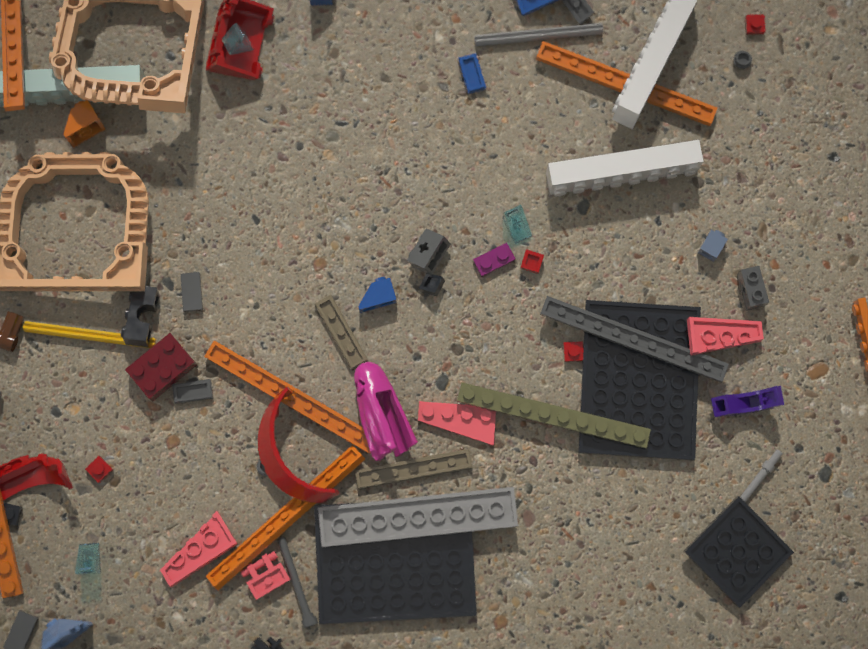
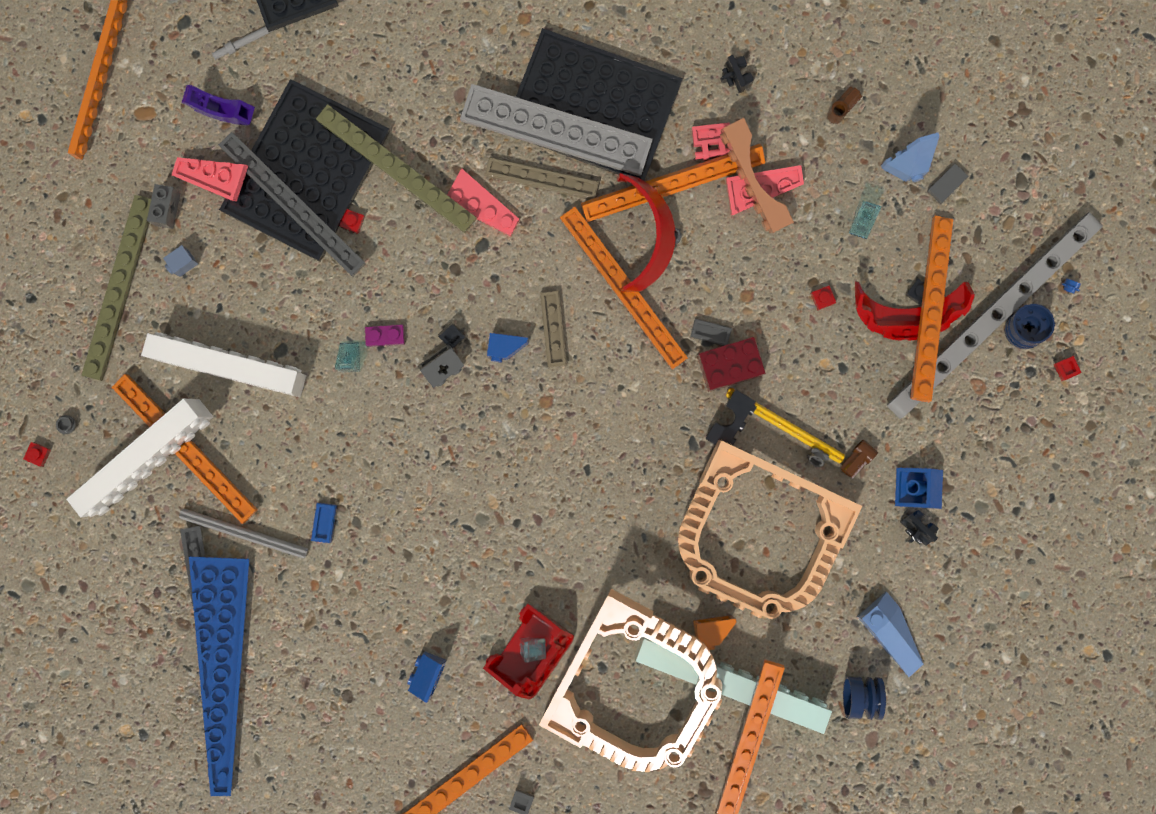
camera: 150 degrees left, 5 degrees up
(47, 317) = (817, 457): none -> dark grey plate
(191, 292) = (674, 425): dark grey tile -> none
(236, 578) = (738, 139): none -> nougat arch
(308, 617) = (689, 87): dark grey piece -> none
(381, 413) = (548, 234): dark pink piece -> none
(532, 261) = (350, 317): red plate -> none
(758, 200) = (117, 289): none -> olive plate

